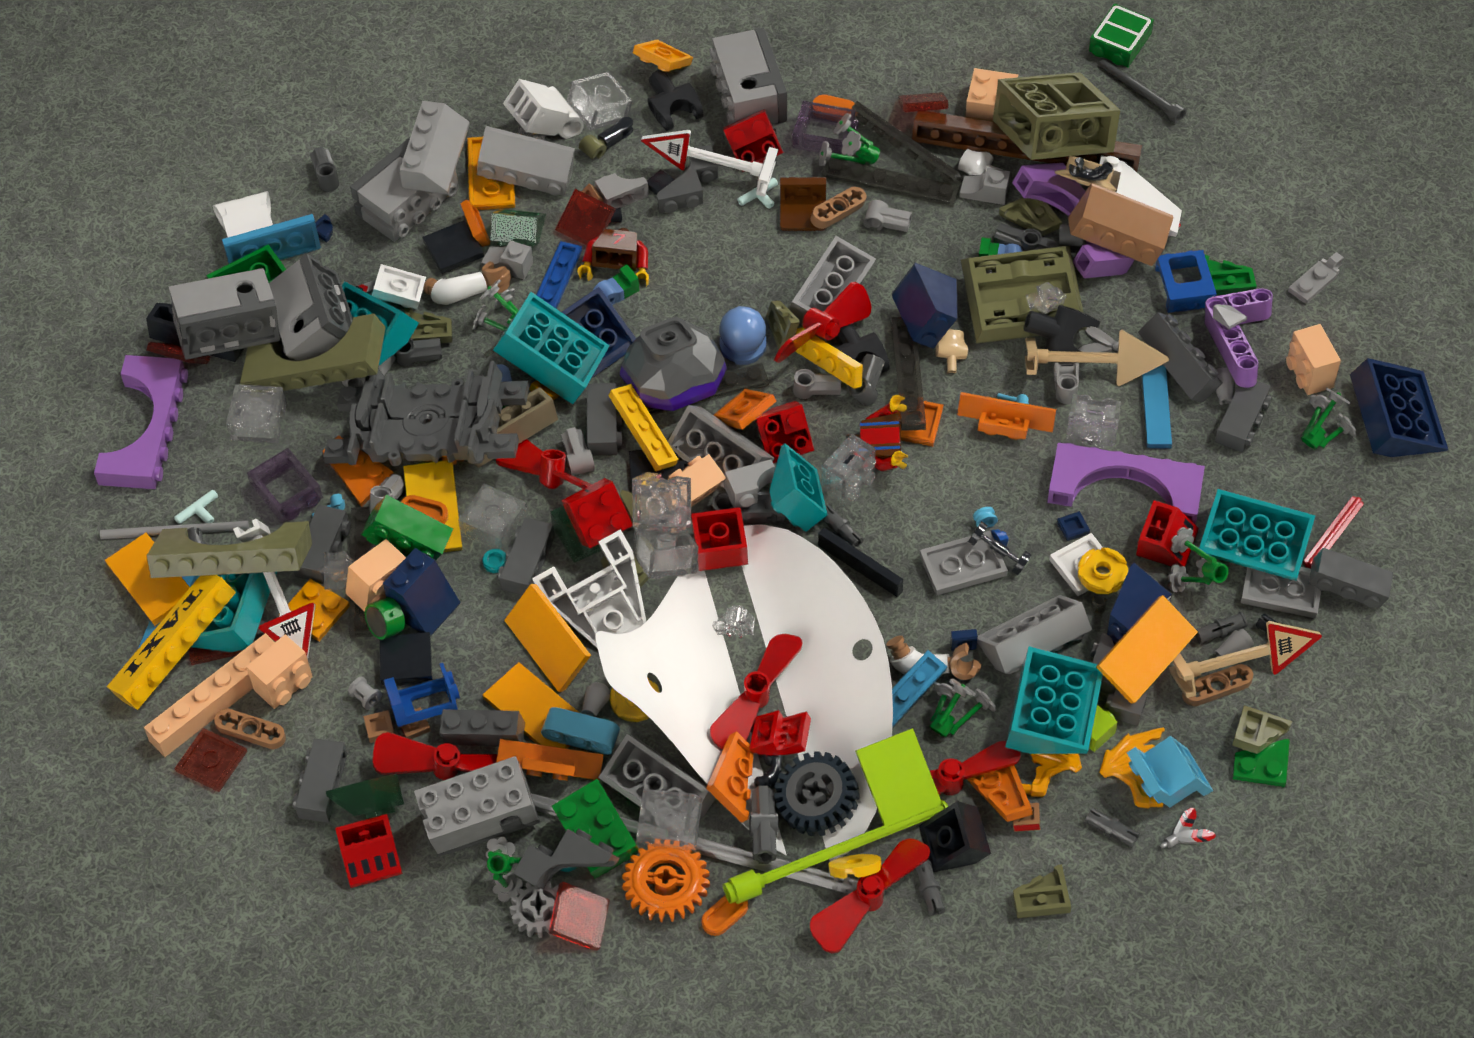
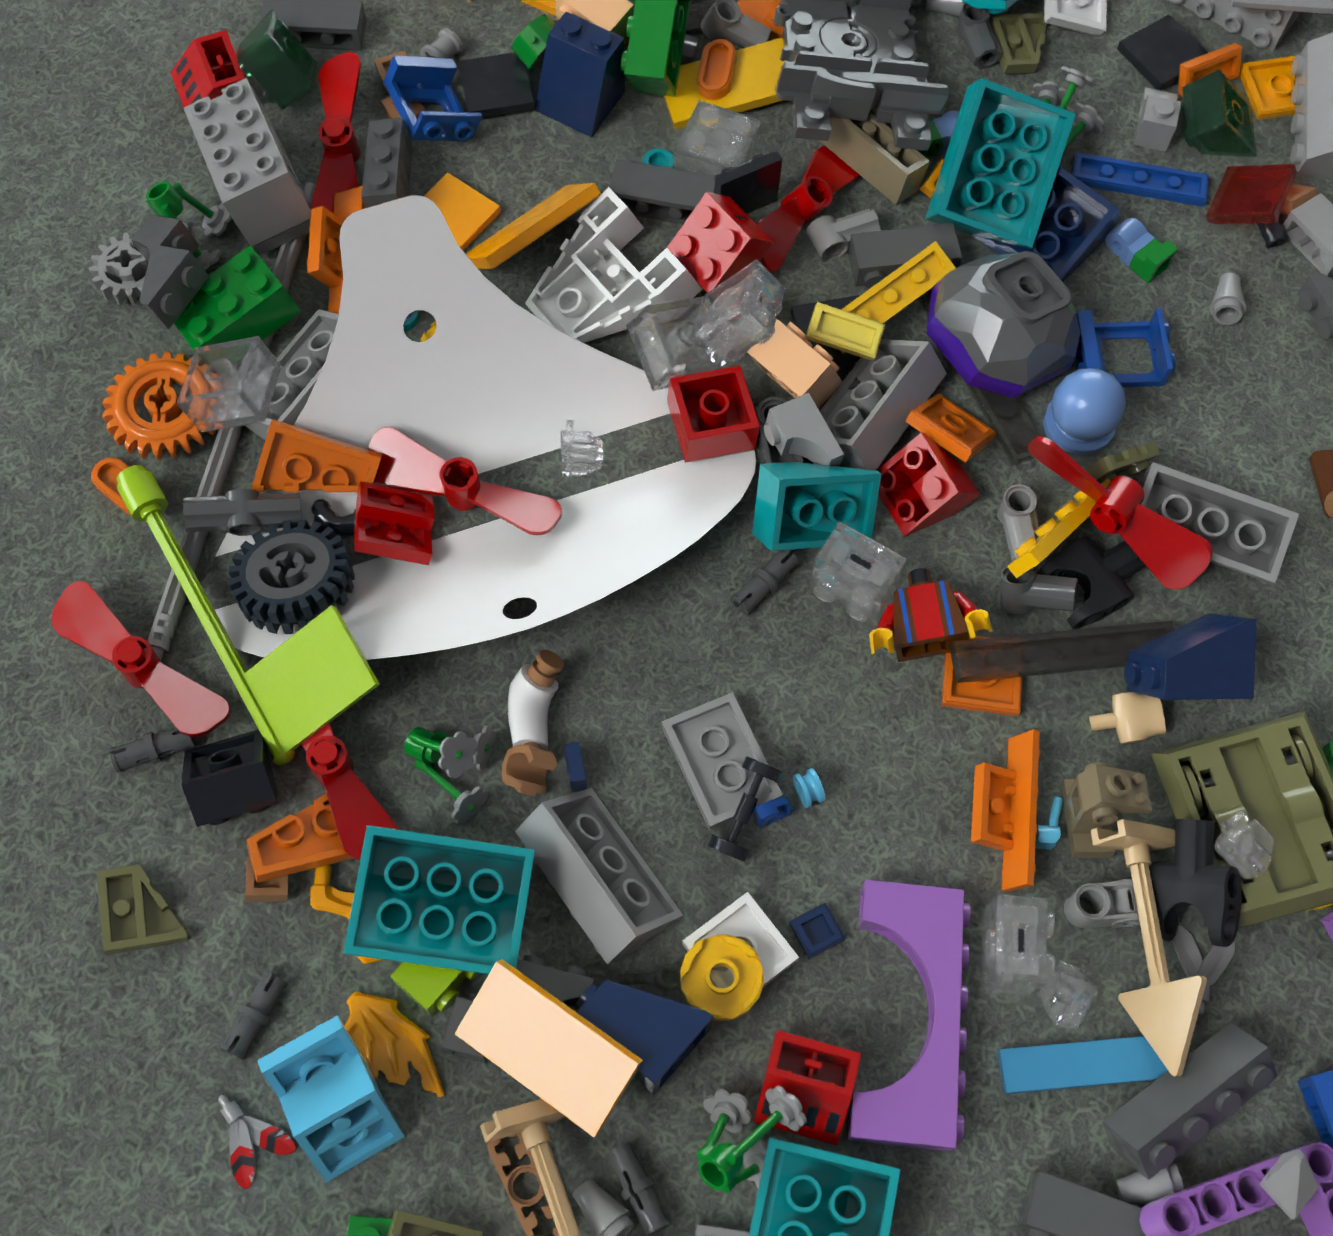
camera: 80 degrees right, 10 degrees up
(462, 287) = (1085, 55): white piece -> none
(536, 497) = (751, 183): none -> black tile
(579, 916) = (110, 311): clear red tile -> none
(614, 250) = (1204, 238): reddish brown torso -> none
(663, 248) = (1228, 302): none -> light grey cone
(668, 454) = (845, 331): none -> light yellow tile
(697, 290) = (1154, 331): none -> blue window
(859, 865) = (162, 648): yellow tile -> none
(860, 562) = (701, 611): black tile -> none
(915, 684) = (472, 690): dark azure tile -> none
(1010, 375) = (1095, 802): none -> dark tan tile
(1129, 402) = (1068, 996): none -> clear piece

